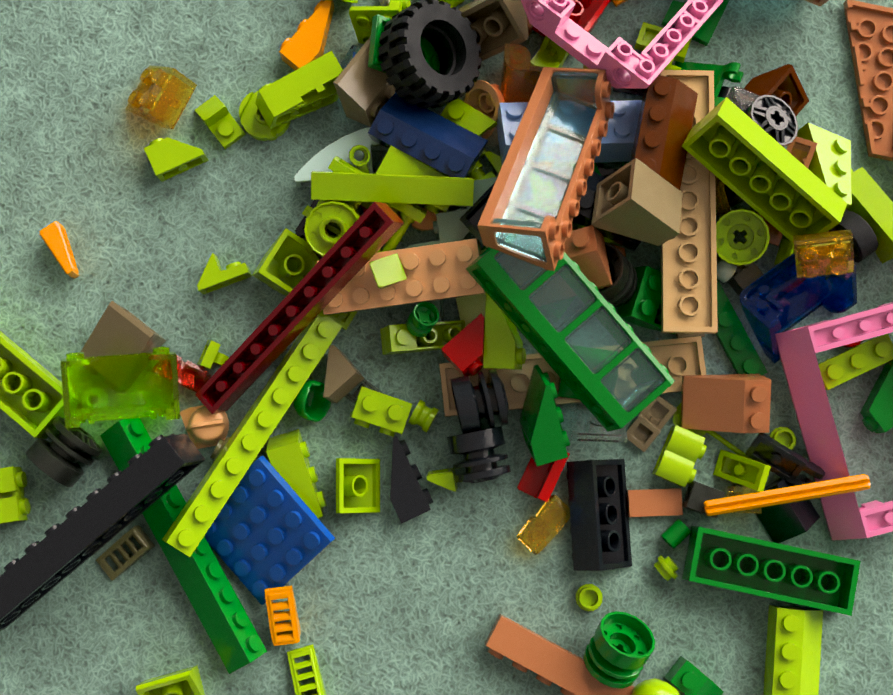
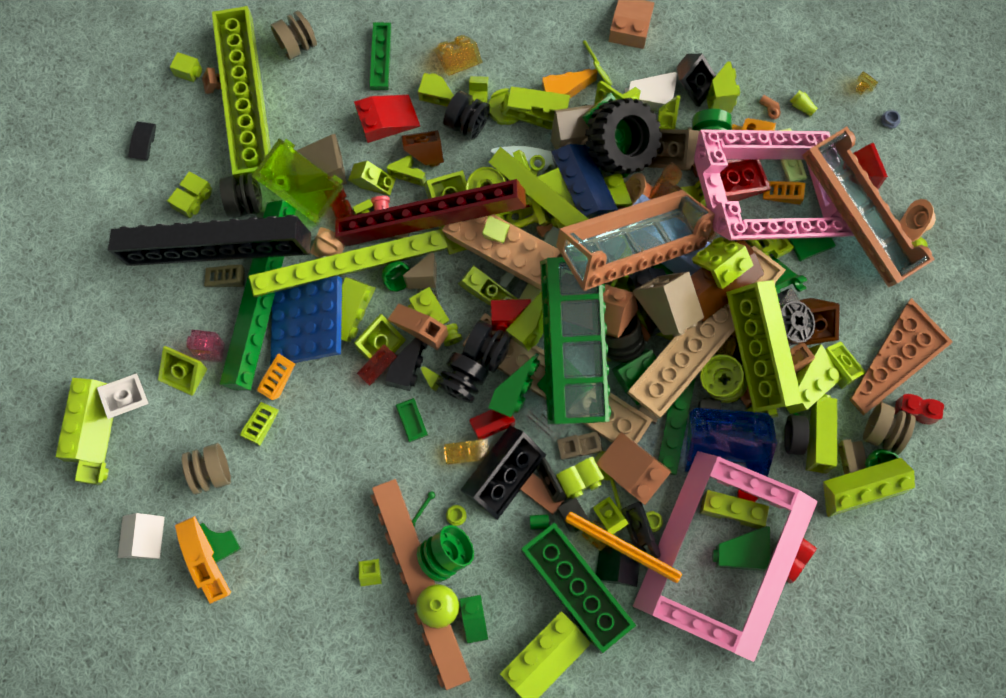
camera: 45 degrees right, 10 degrees down
(58, 243) = (336, 86): light orange slope -> none
(74, 165) = (380, 56): none -> green plate
(142, 229) = (386, 116): none -> red slope
(177, 647) = (206, 345): none -> clear pink brick
(189, 313) = (371, 178): none -> lime slope
(216, 232) = (424, 147): none -> reddish brown slope
(228, 337) = (380, 202): none -> coral bush
(233, 160) = (466, 115): none -> black wheel
(377, 513) = (377, 364): none -> clear red hinge
(387, 438) = (419, 325): none -> nougat slope
(422, 319) = (494, 275): green wheel -> none
(459, 538) = (411, 420): none -> green tile
(546, 598) = (431, 495): none -> green hinge
(653, 114) = (724, 259): none -> lime bracket
(654, 485) = (550, 481): none -> pearl dark grey slope
(666, 567) = (516, 536): lime plate -> none
(725, 270) = (699, 393): light aqua hinge -> none
(824, 253) = (762, 419): clear yellow slope -> none
(838, 121) = (845, 364): none -> lime slope

